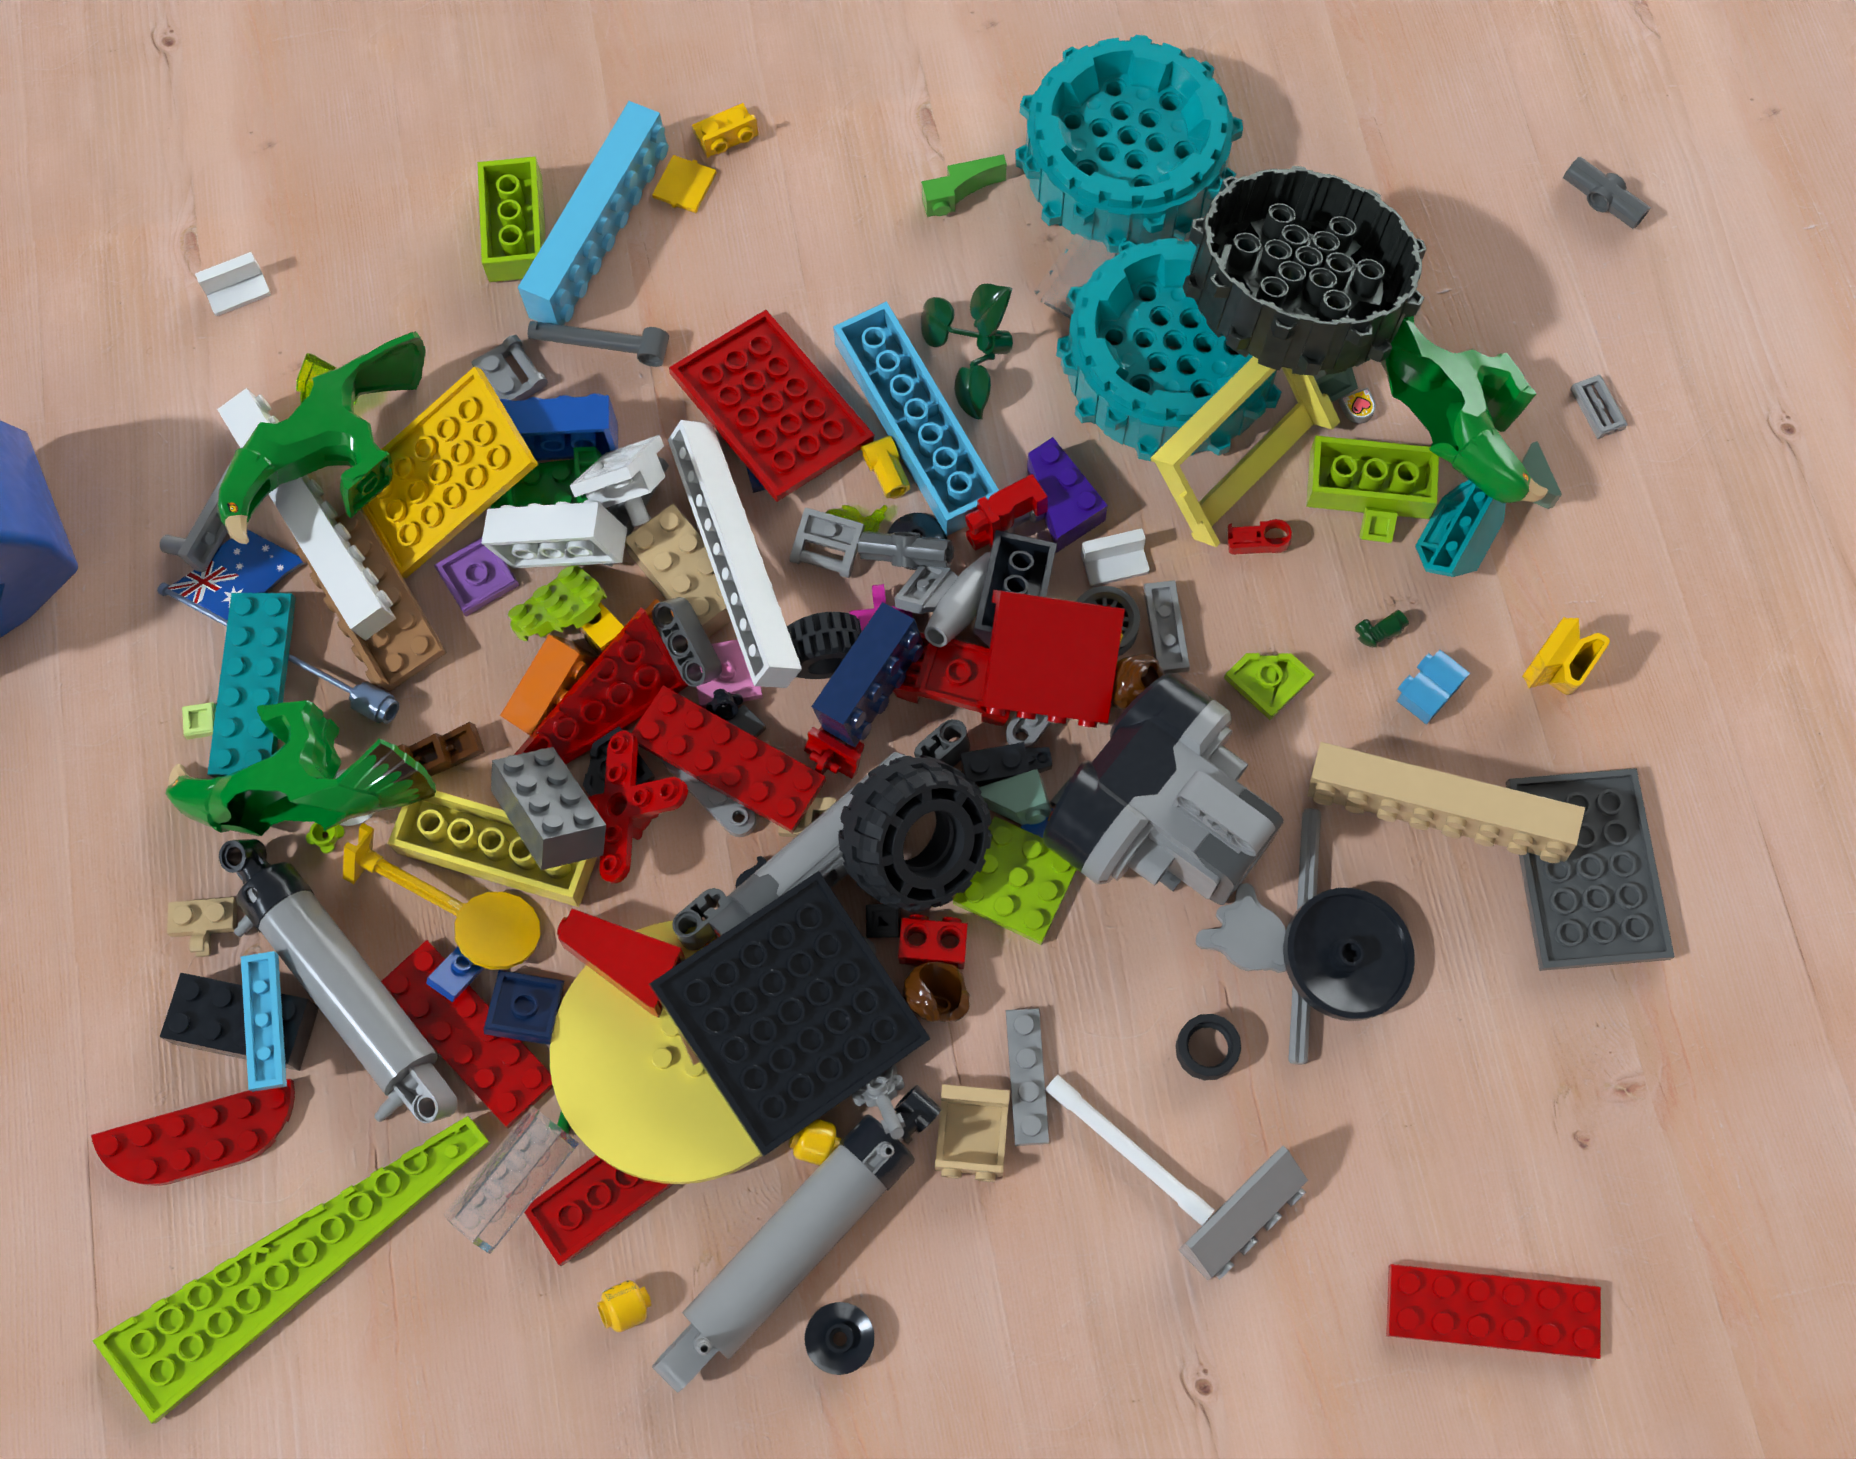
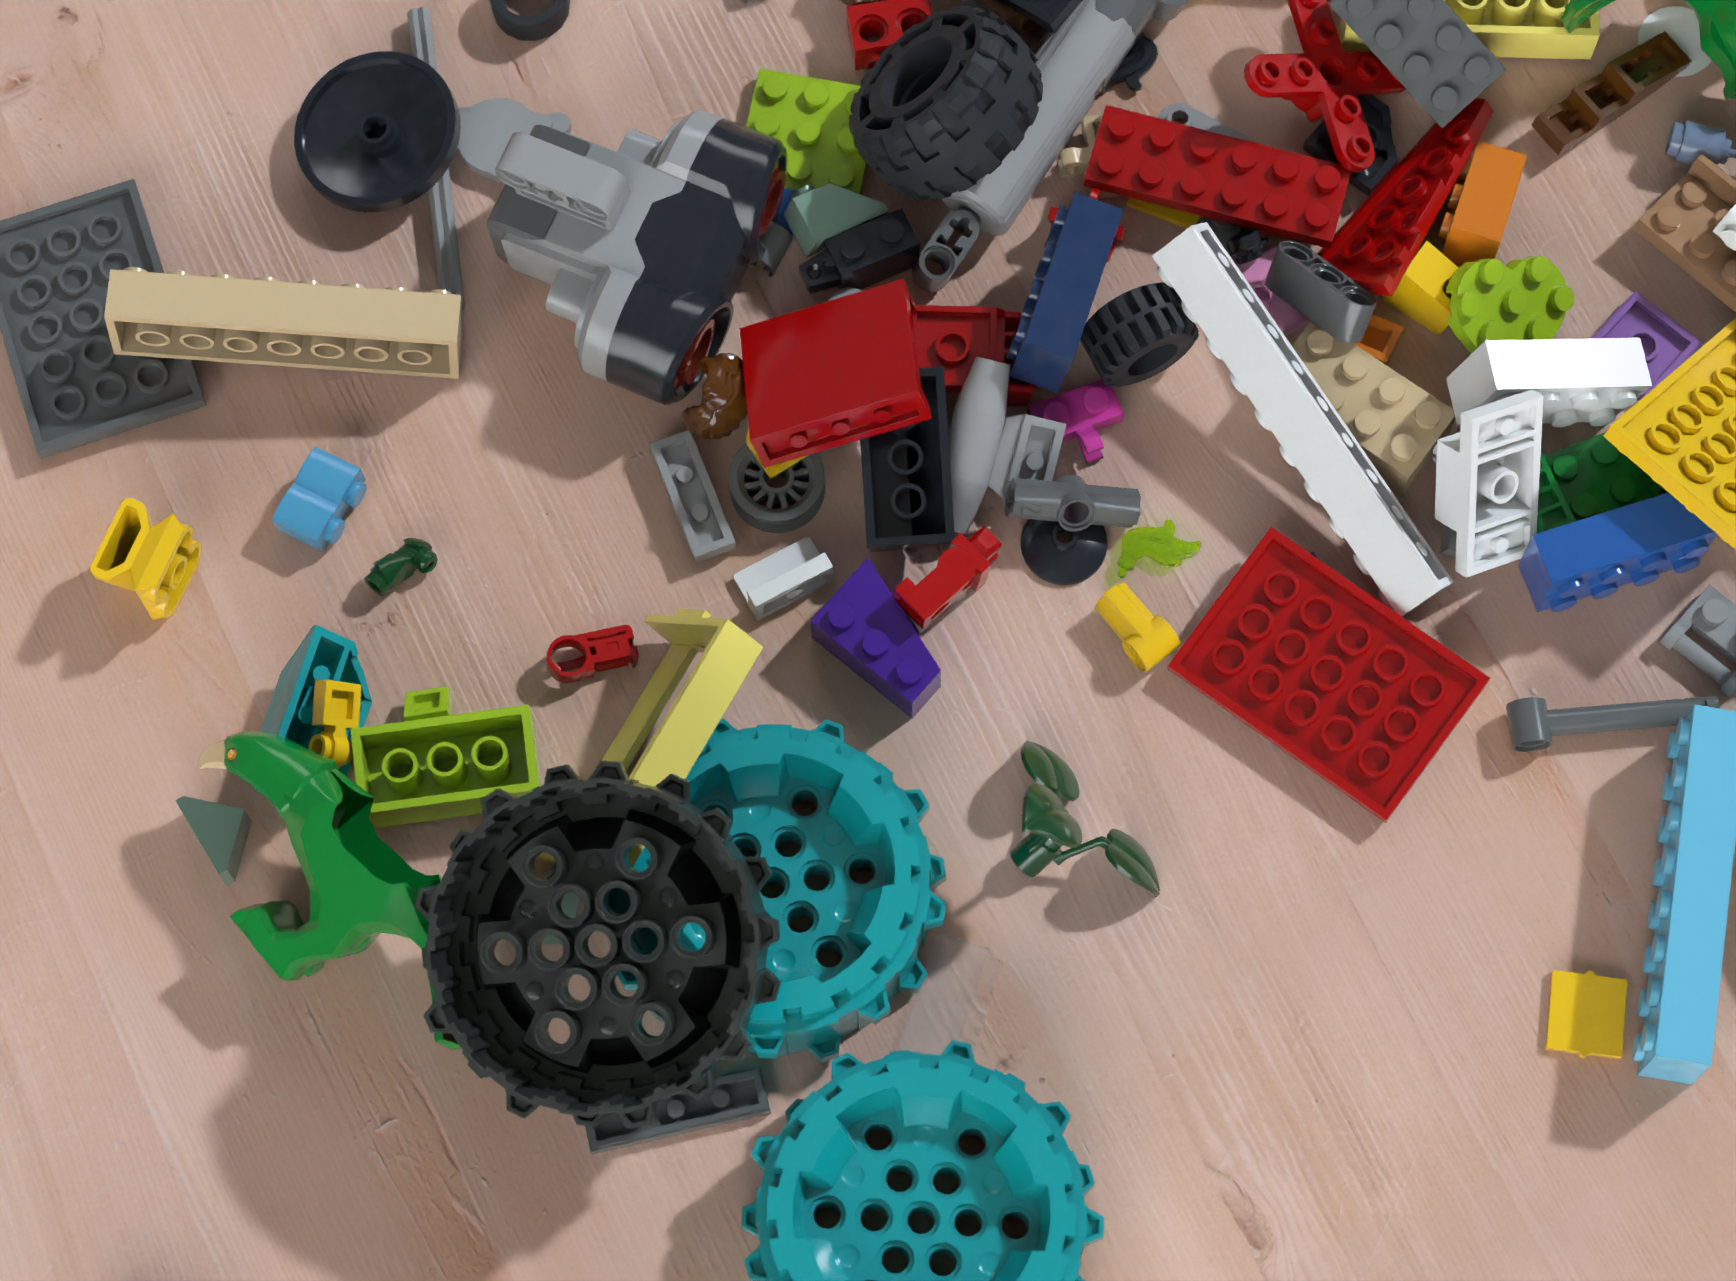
camera: 165 degrees right, 0 degrees up
(725, 130) = (1557, 1118): yellow bracket -> none
(831, 533) = (1184, 508): light grey plate -> none
(914, 415) = (1116, 699): medium azure brick -> none
(962, 179) = (1184, 1078): bright green slope -> none
(1269, 680) = (539, 458): lime plate -> none
(1447, 516) = (337, 710): none -> yellow plate
(1594, 409) = (153, 1011): light grey tile -> none

